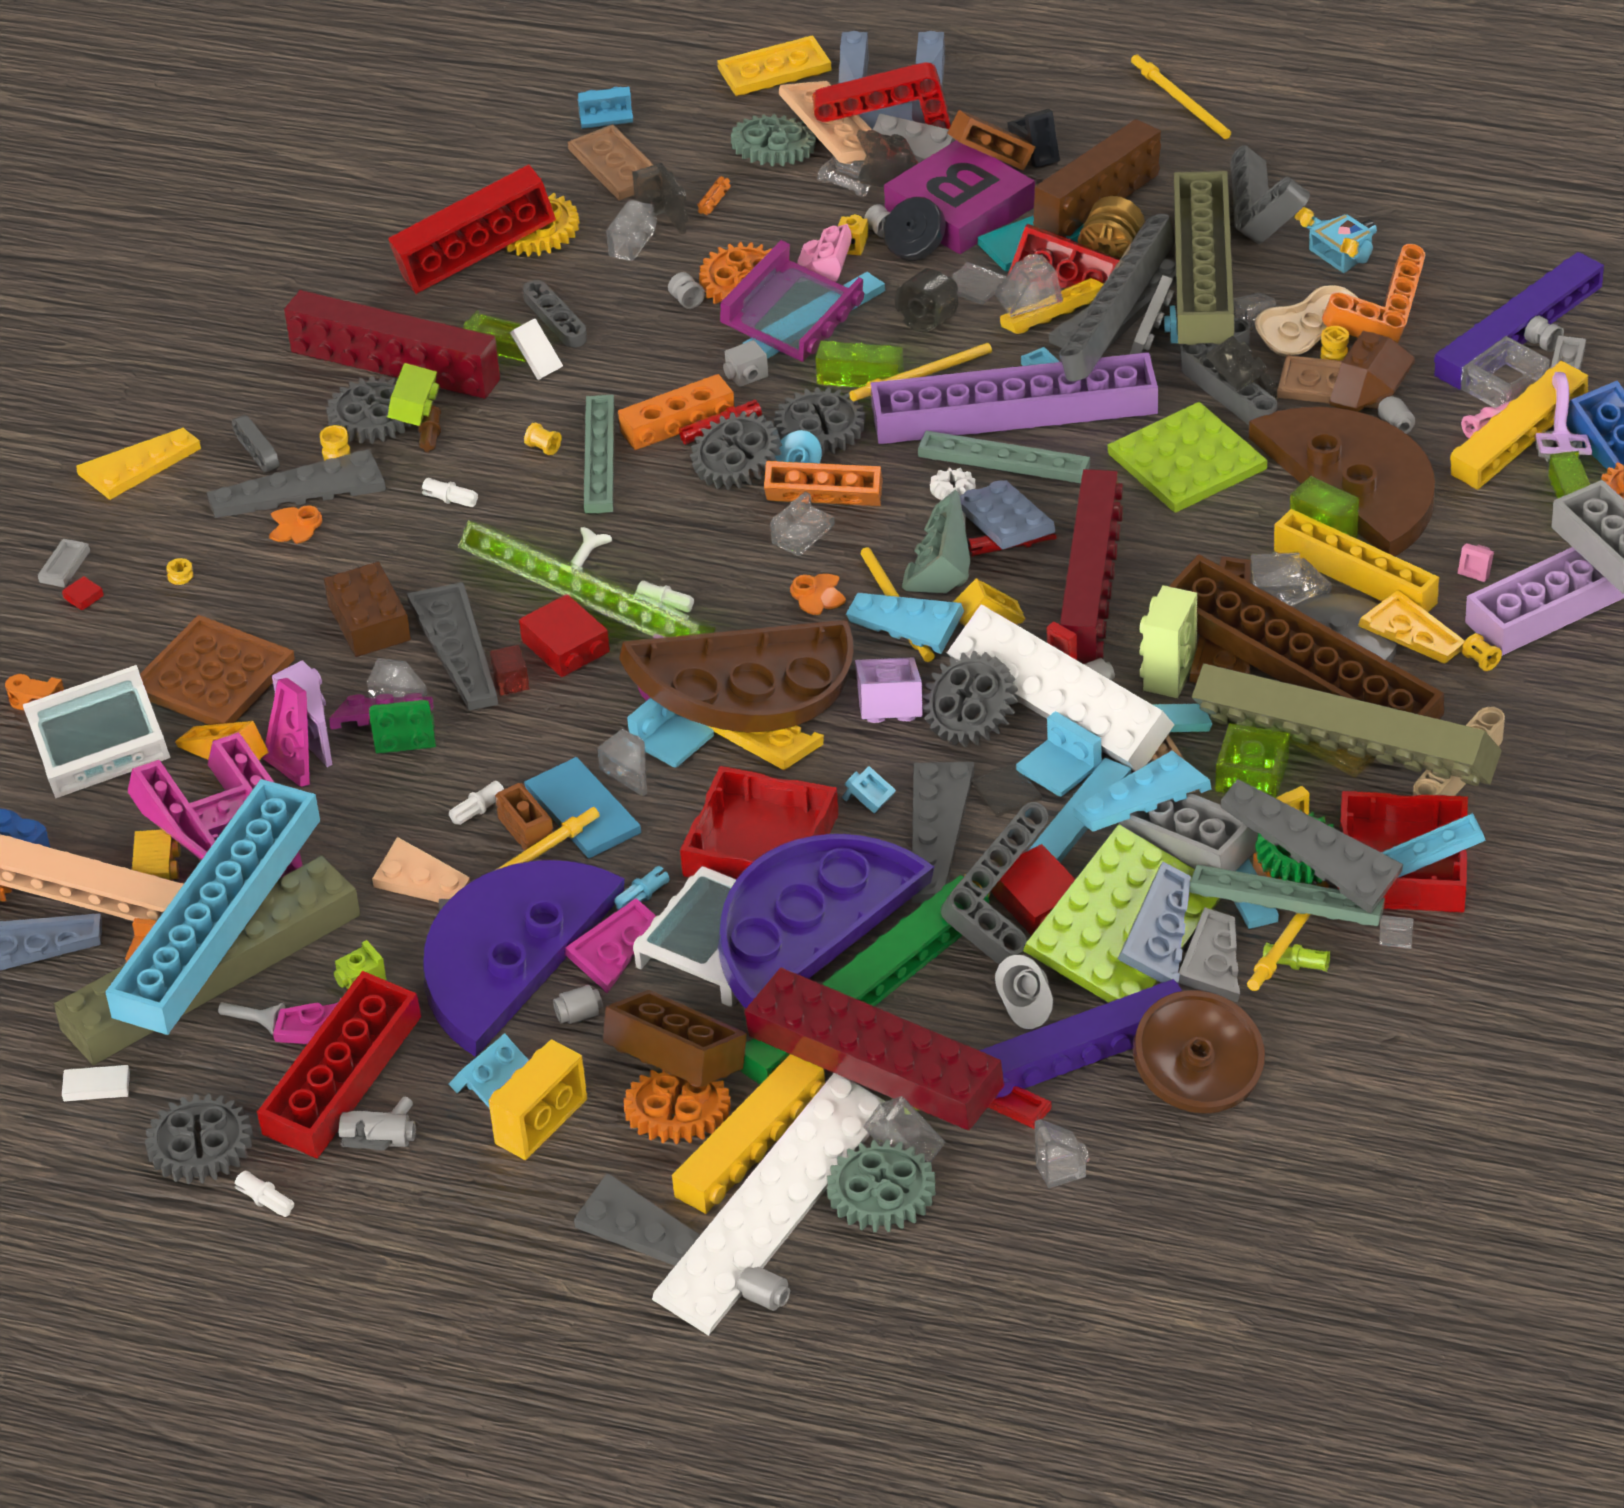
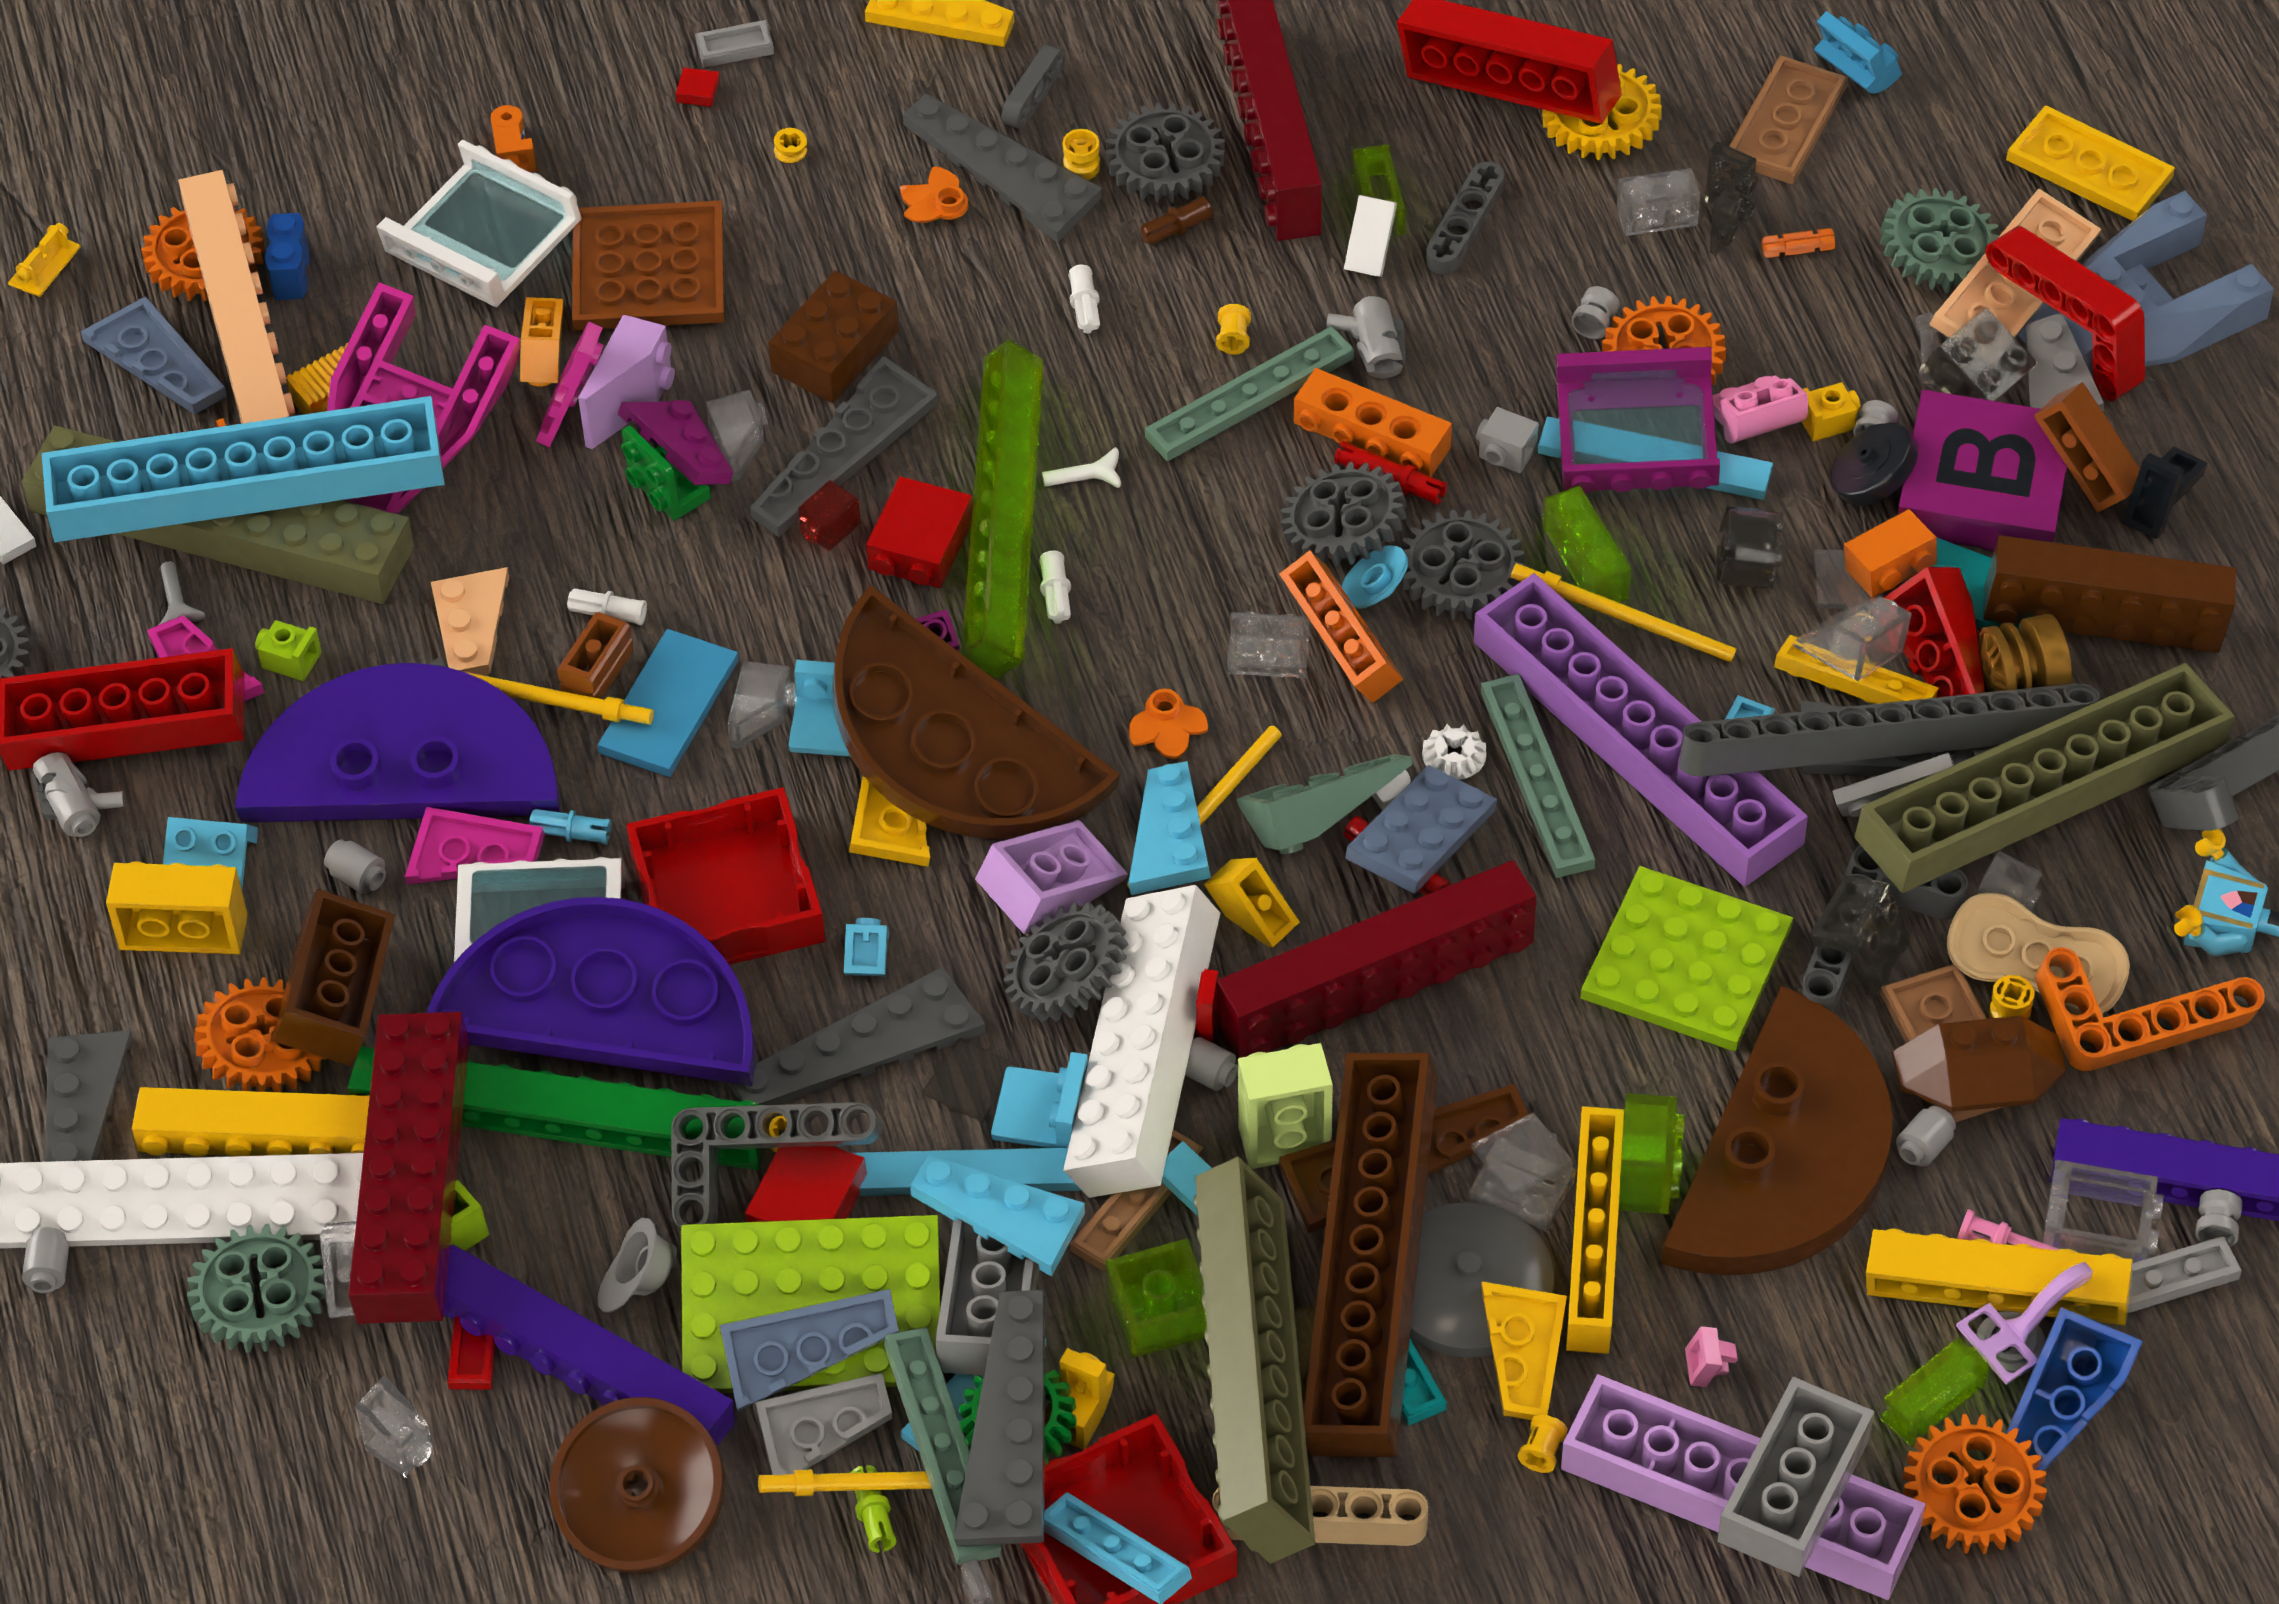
camera: 55 degrees right, 10 degrees up
(413, 394) = (1191, 171): lime brick -> none
(621, 383) = (1379, 336): none -> light grey piece
(984, 250) = (1890, 553): none -> orange brick

